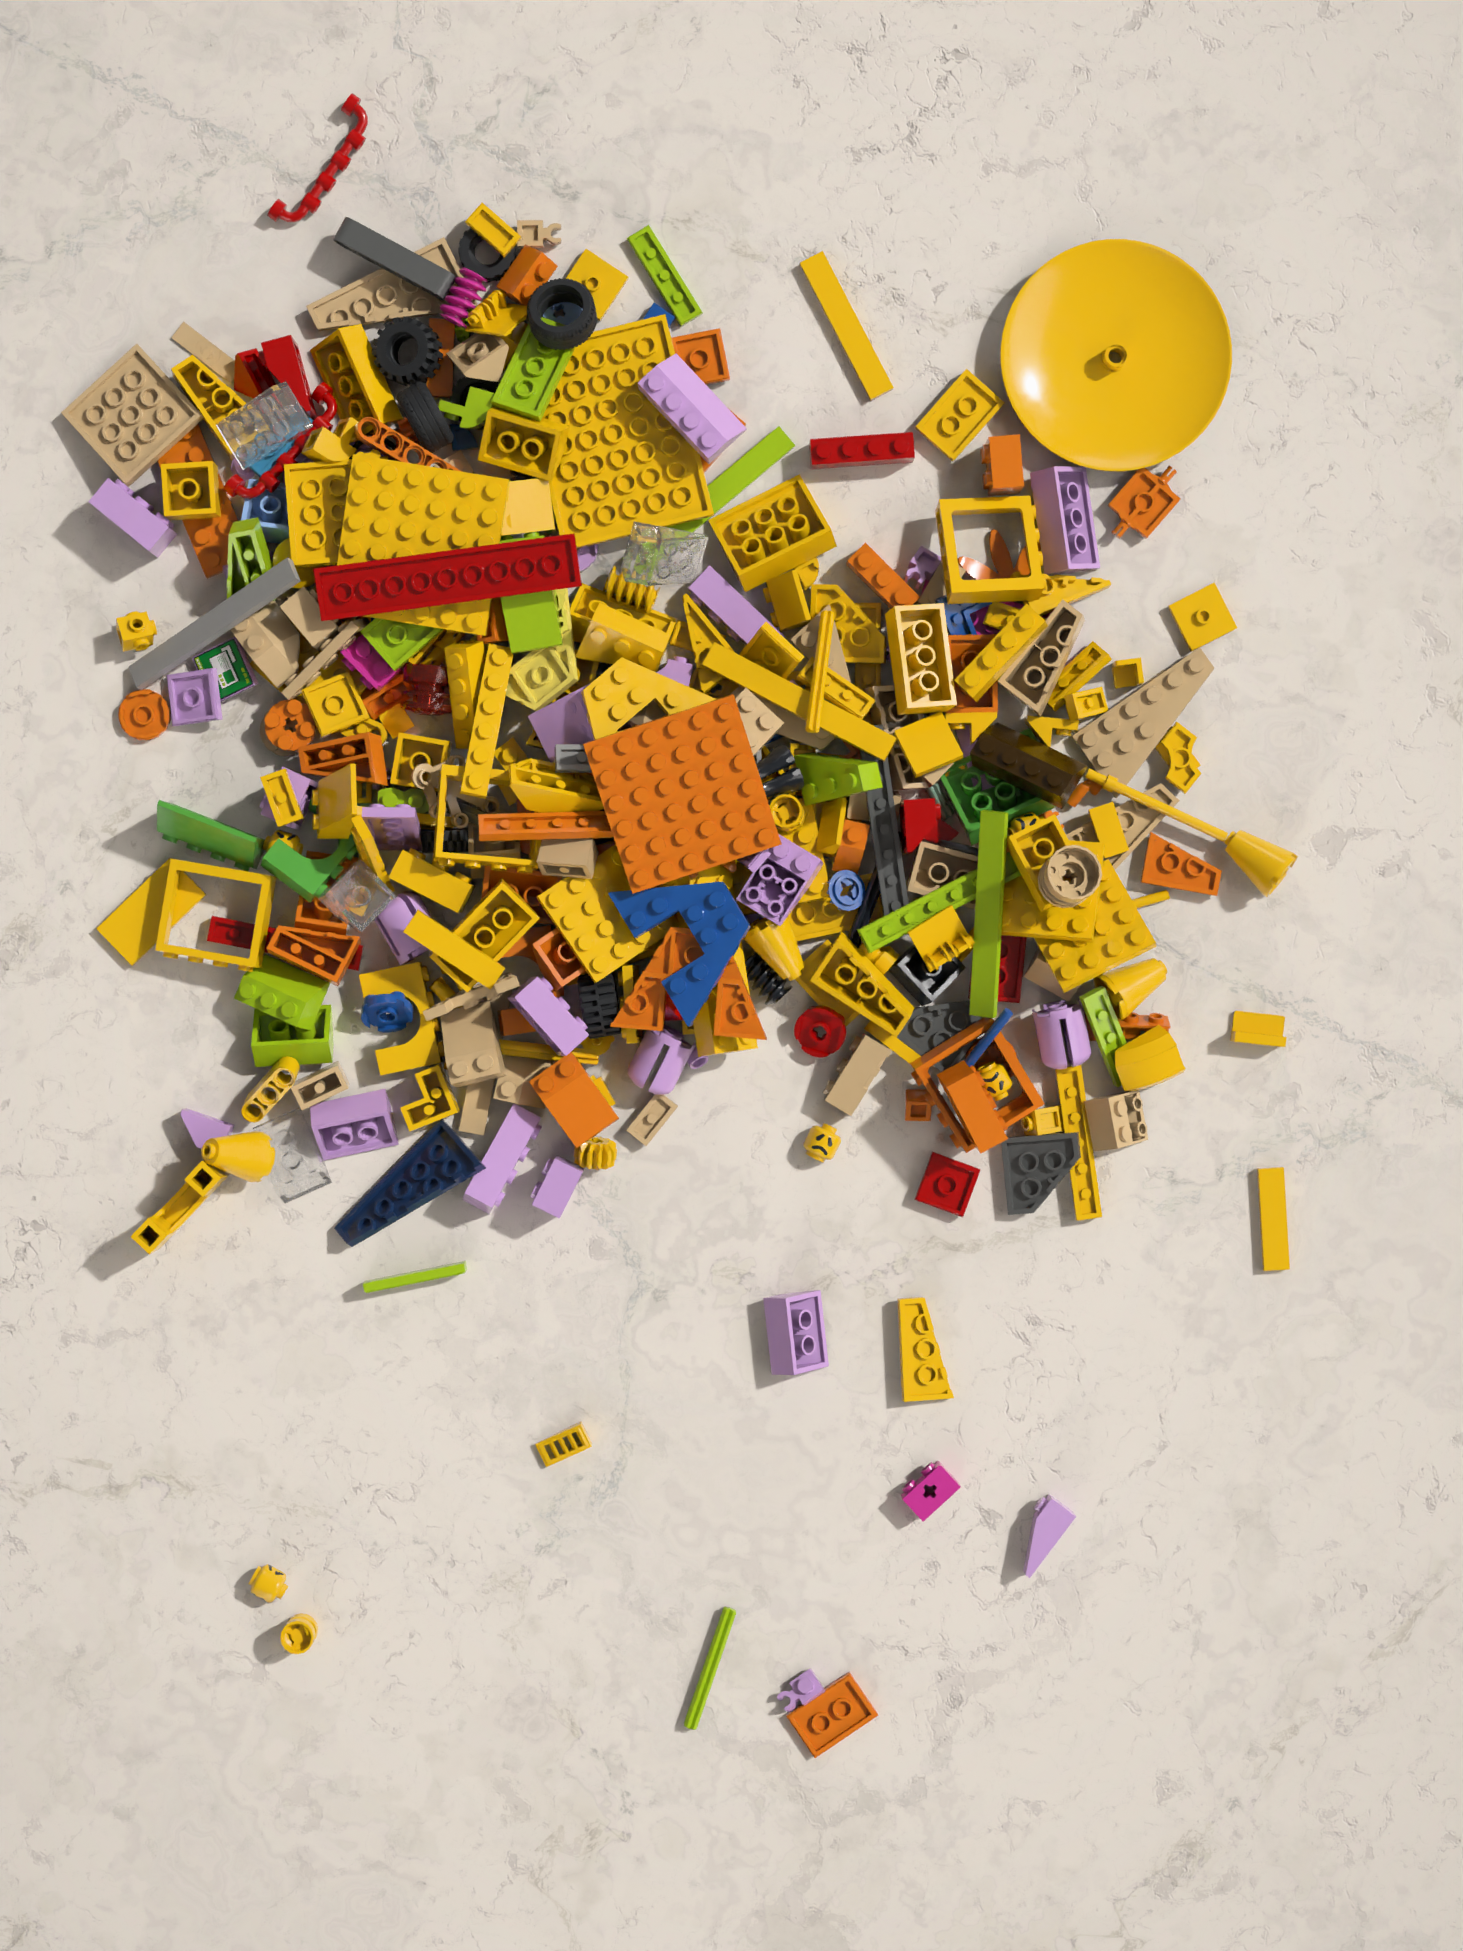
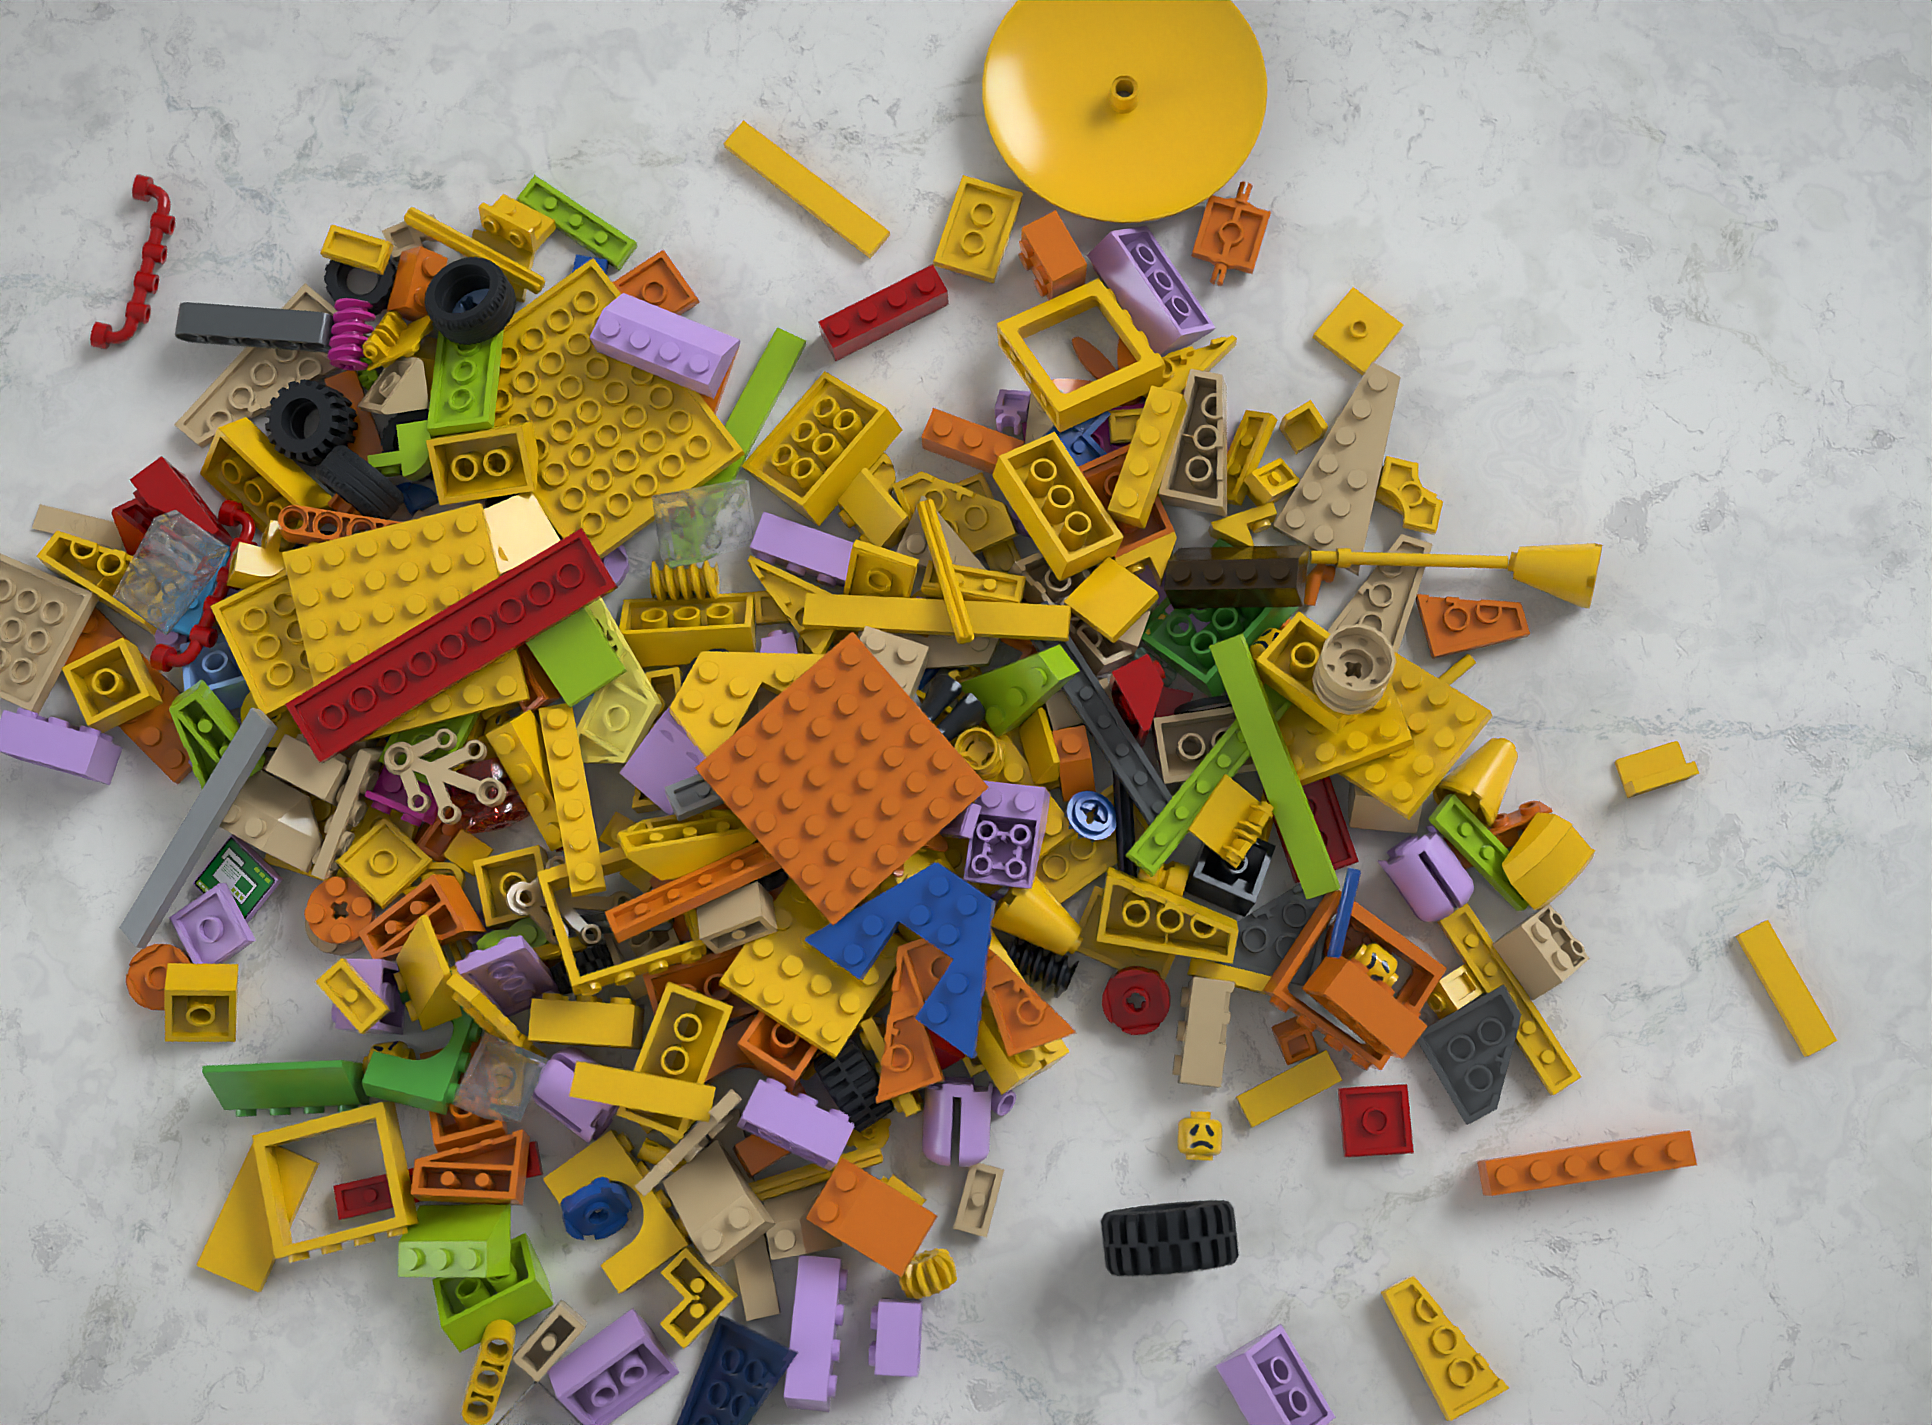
camera: 20 degrees left, 10 degrees down
(135, 631) = (110, 880): yellow brick -> none
(168, 747) = (201, 1002): none -> yellow slope
(400, 661) = (439, 773): none -> tan plant
(579, 268) = (472, 248): none -> yellow axle
(619, 258) = (516, 223): none -> yellow bracket
(619, 635) = (683, 630): yellow wedge -> none
(769, 1202) = (1169, 1238): none -> black tyre
(898, 1136) = (1288, 1088): none -> yellow tile
(1077, 1275) = (1586, 1163): none -> orange brick
(1108, 829) = (1366, 609): yellow tile -> none

